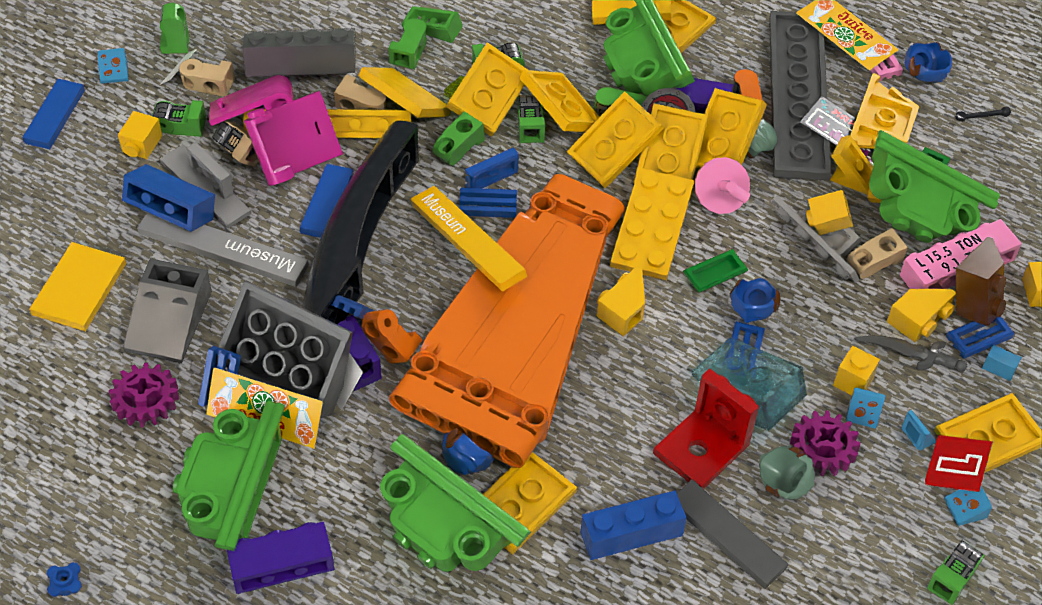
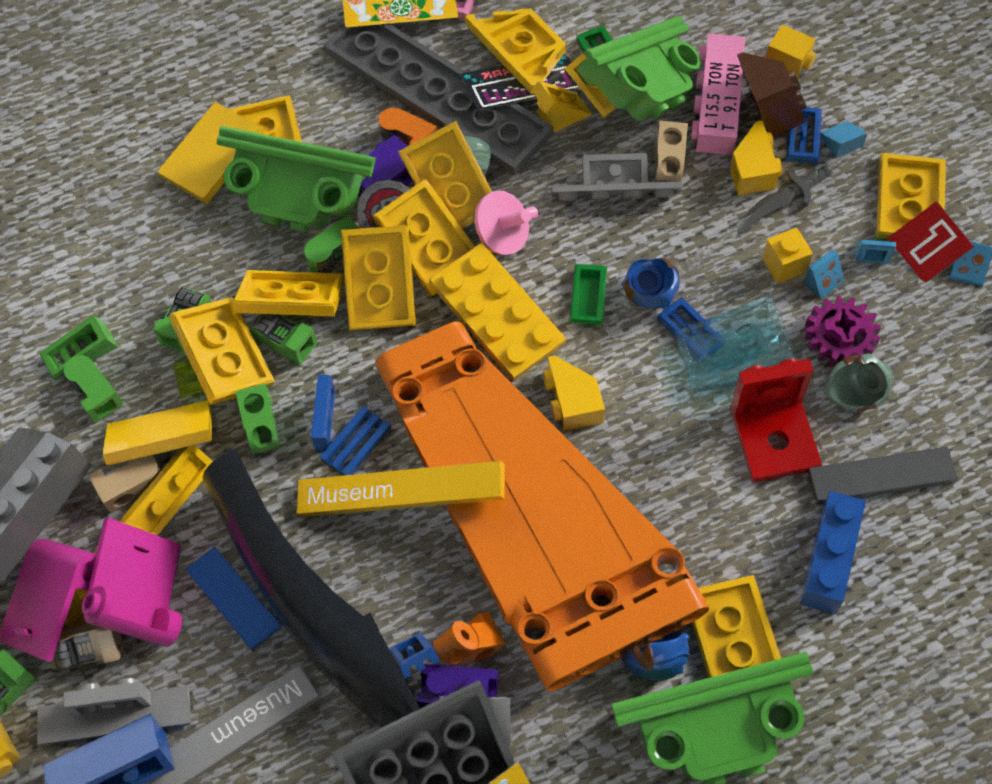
camera: 50 degrees left, 10 degrees up
(829, 212) = (609, 157): yellow brick -> none

